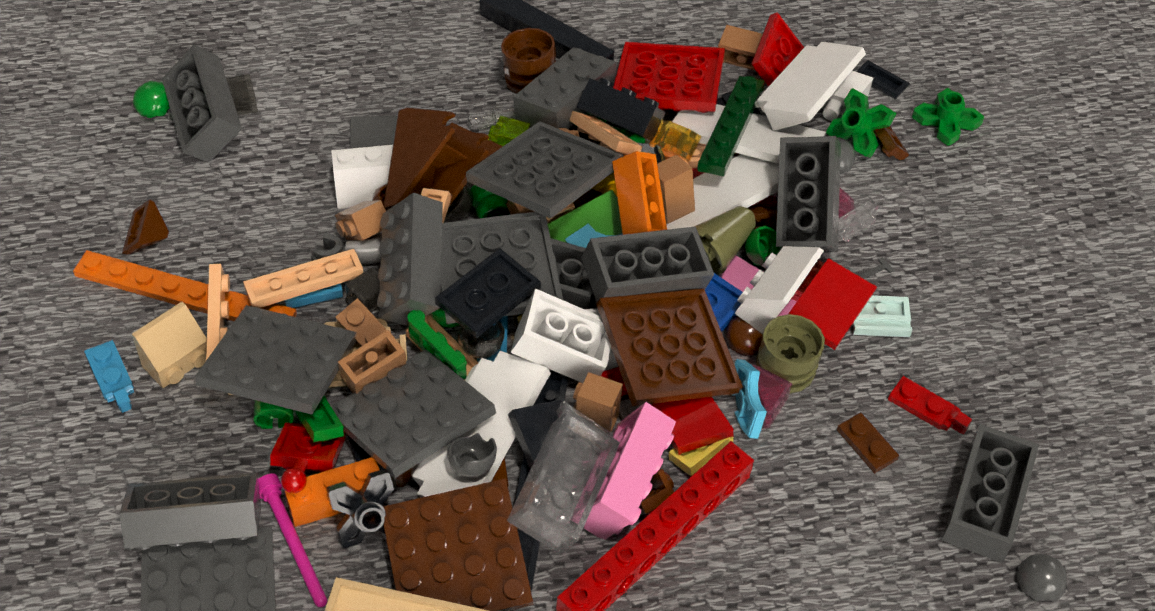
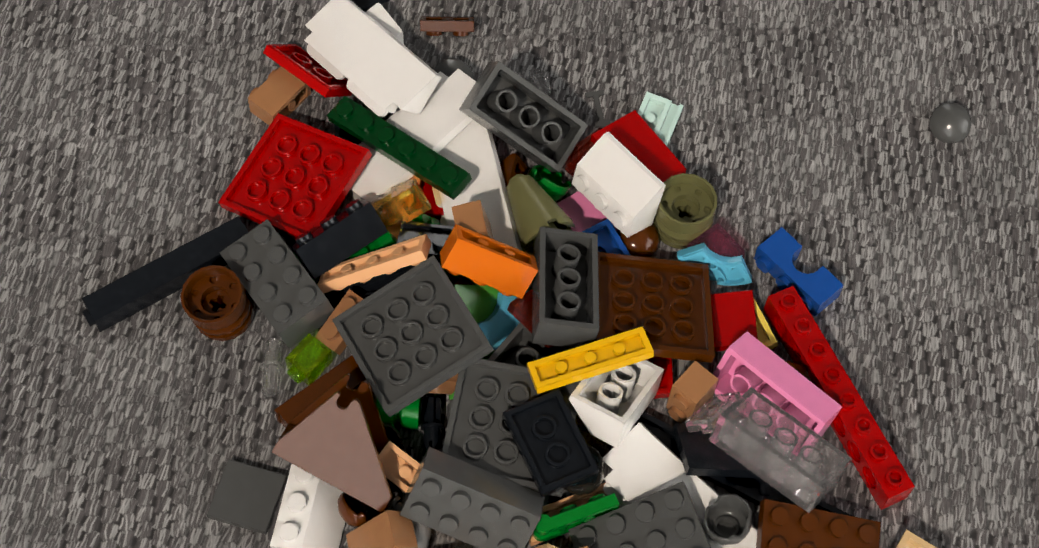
camera: 70 degrees left, 10 degrees up
(578, 295) = (590, 360): none -> yellow plate
(767, 491) = (777, 258): none -> blue arch
(860, 121) = (436, 24): green plant -> none
(867, 442) = (783, 191): reddish brown plate -> none
(929, 406) = (761, 129): red hinge -> none
(991, 493) = (870, 120): dark grey brick -> none

